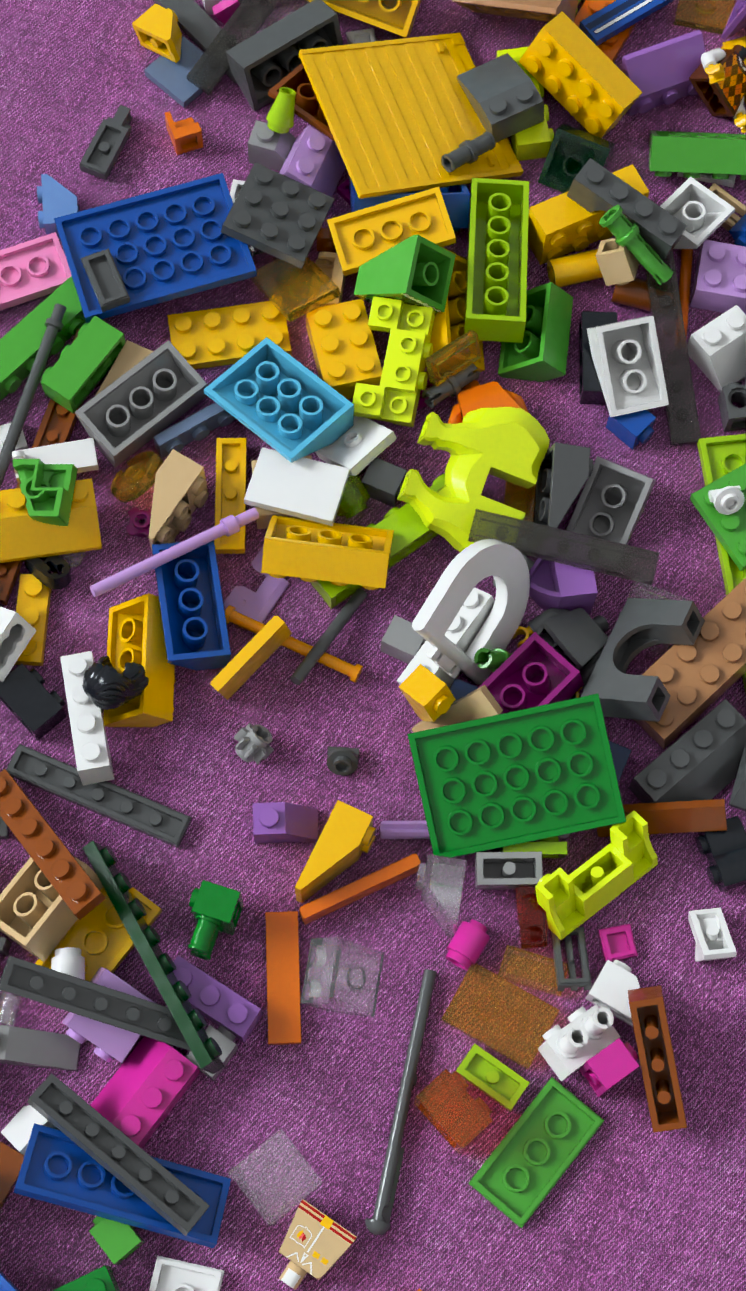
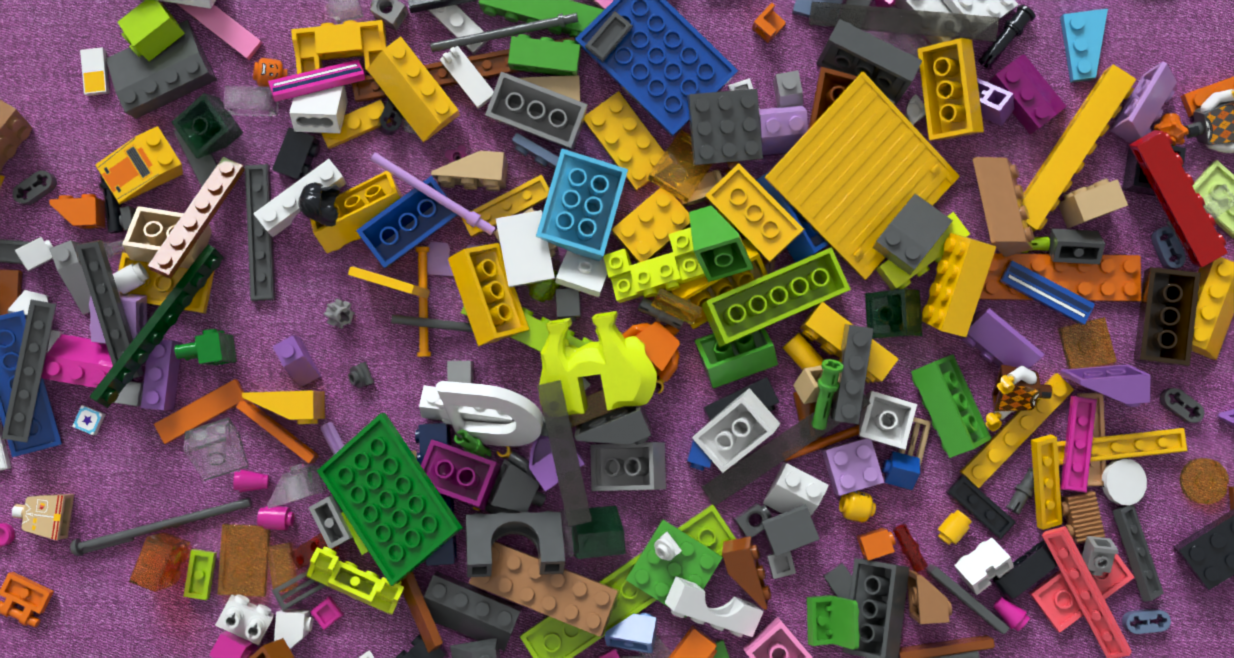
camera: 70 degrees right, 15 degrees up
(47, 489) = (427, 86): bright green slope -> none
(137, 477) = (483, 137): clear yellow tile -> none
(217, 1129) = (88, 420): none -> white tile
(275, 1177) = (77, 470): clear tile -> none
(281, 114) = (807, 86): lime cone -> none
(404, 956) = (250, 481): none -> dark pink cone
(427, 694) = (412, 413): yellow slope -> none
(468, 151) = (851, 234): dark grey pin -> none
(472, 706) = (415, 439): tan tile -> none
(536, 1152) = (169, 623): bright green tile -> none
(677, 572) = (601, 536): none -> clear green slope

